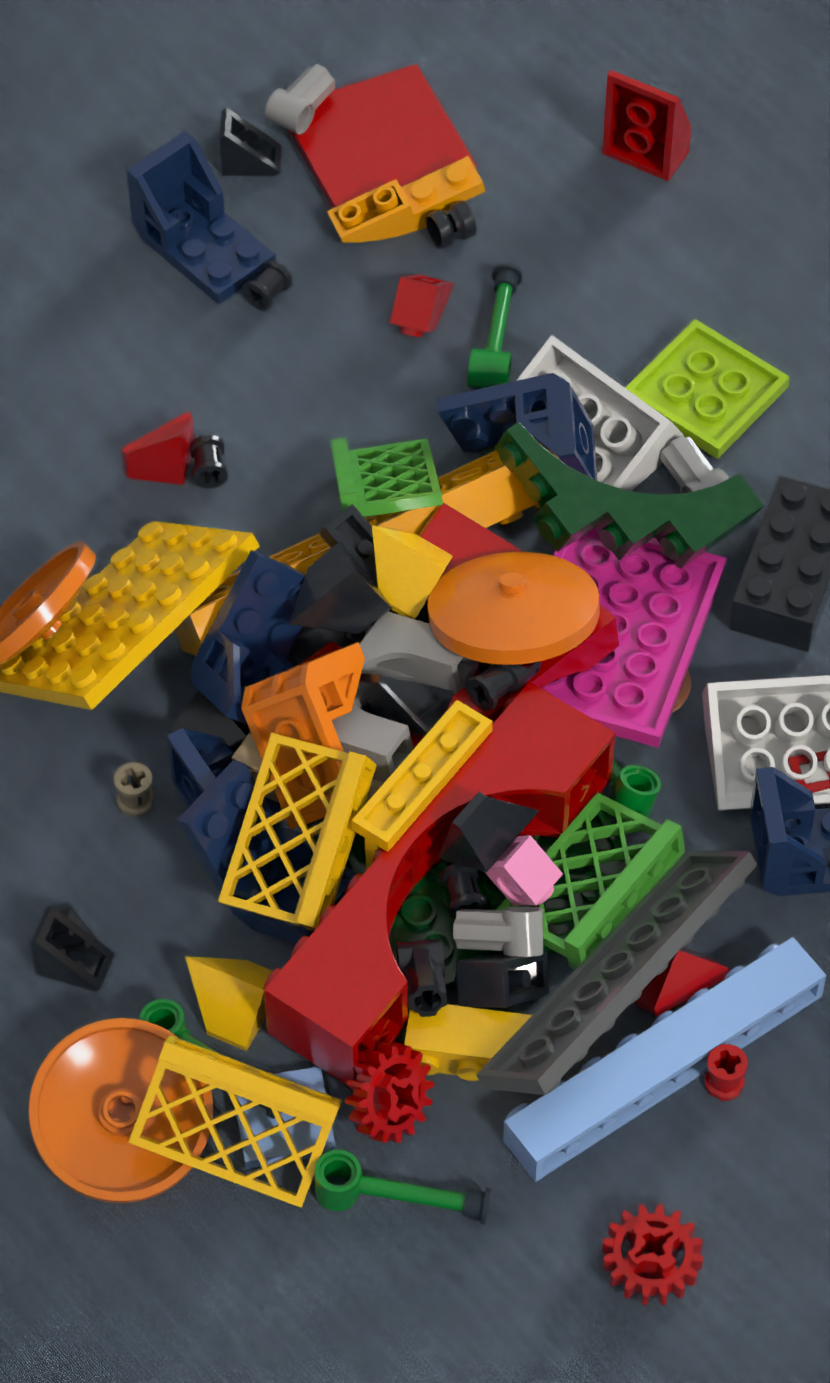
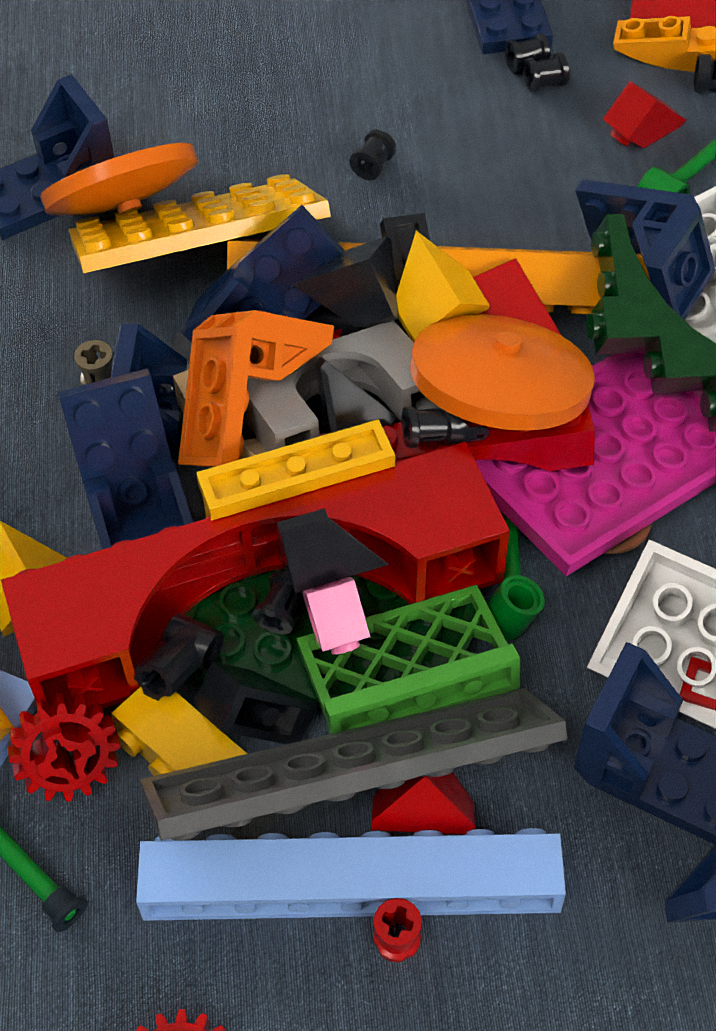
camera: 35 degrees right, 0 degrees up
(161, 453) = (341, 129): red slope -> none
(299, 297) = (546, 72): none -> black bush
(333, 843) = (172, 482): yellow fence -> none
(386, 477) = (485, 222): bright green fence -> none
(513, 930) = (285, 660): light grey piece -> none

